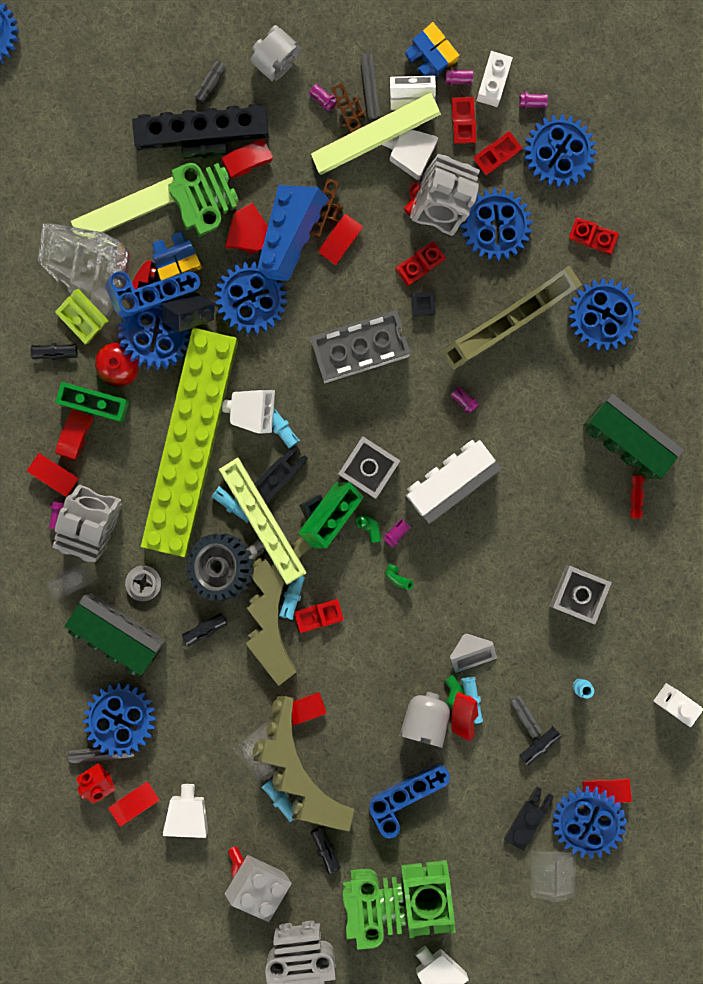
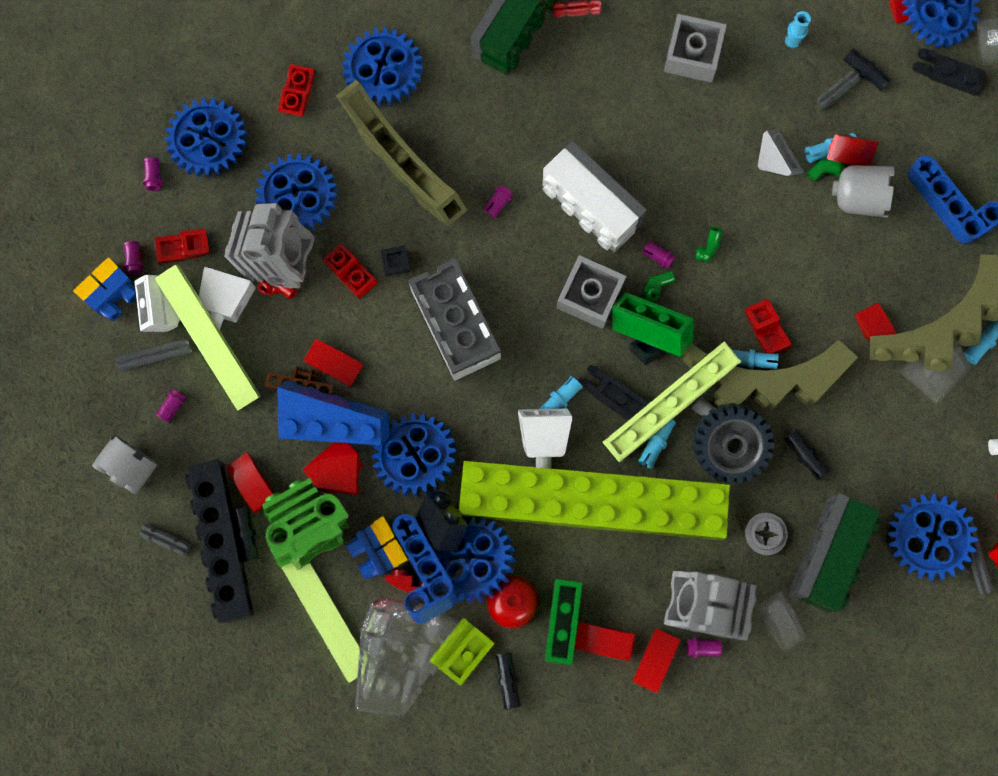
camera: 90 degrees left, 10 degrees down
(349, 120) = (190, 366): reddish brown piece -> none
(494, 79) = (132, 217): white brick -> none
(498, 153) = (214, 204): red slope -> none

